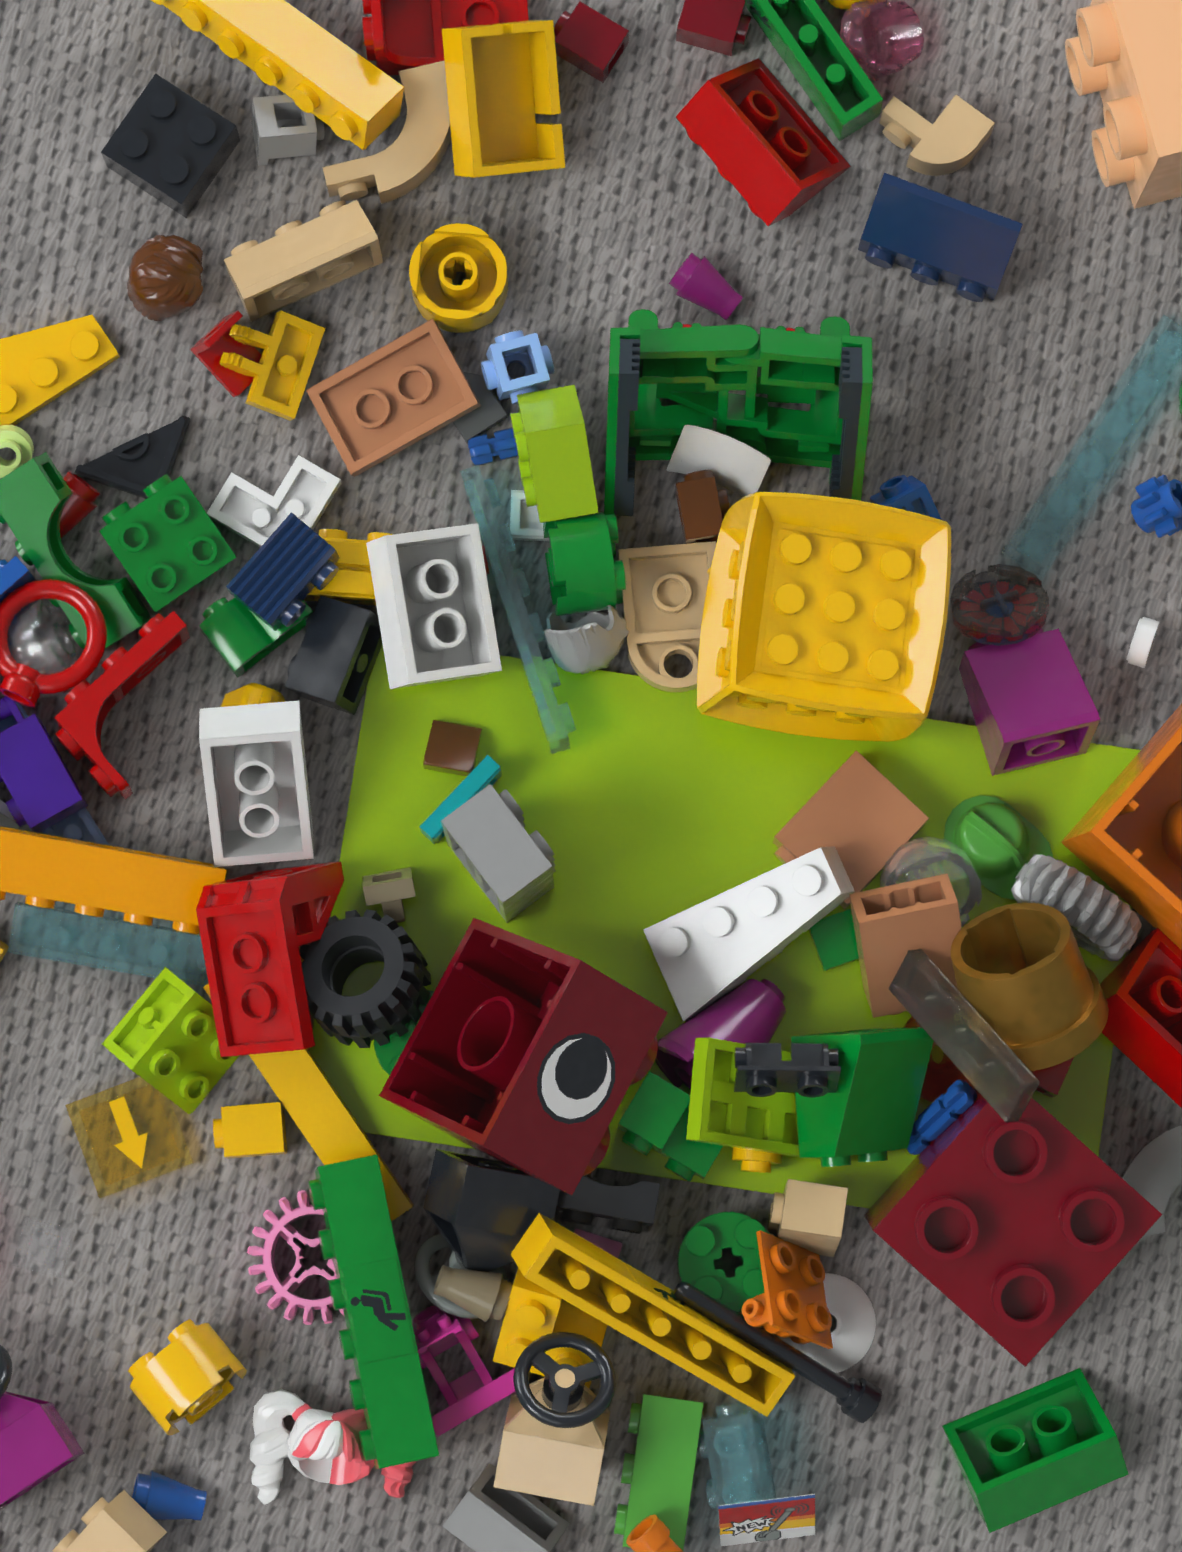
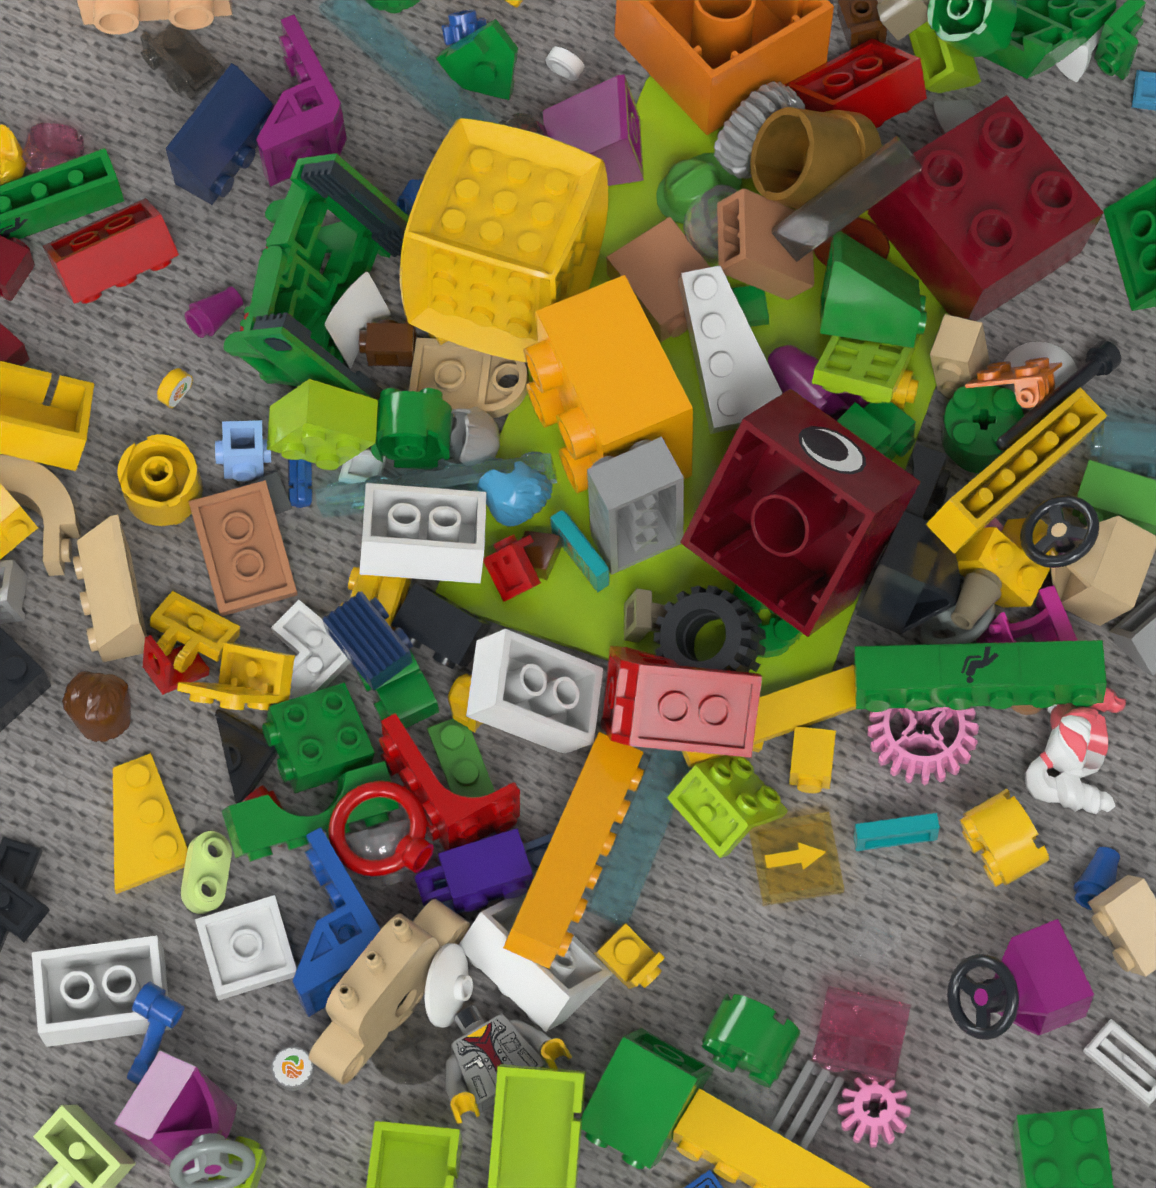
camera: 75 degrees left, 15 degrees down
(164, 722) = (460, 759): none -> bright green hinge
(178, 1247) = (896, 832): none -> teal tile
(209, 445) = (248, 677): none -> yellow bracket
(420, 719) = (511, 567): none -> red bracket
(508, 709) = (515, 495): none -> dark azure hair
(591, 264) = (174, 387): none -> yellow tile
(643, 792) = (605, 380): none -> light orange brick
(763, 1073) = (853, 306): black hinge -> none
(937, 146) = (145, 130): tan brick -> none
(940, 1115) = (897, 248): blue axle -> none
(957, 322) = (290, 129): none -> magenta bracket
(1051, 162) = (182, 59): none -> clear smoke bracket
(1116, 537) = (482, 61): none -> green plate

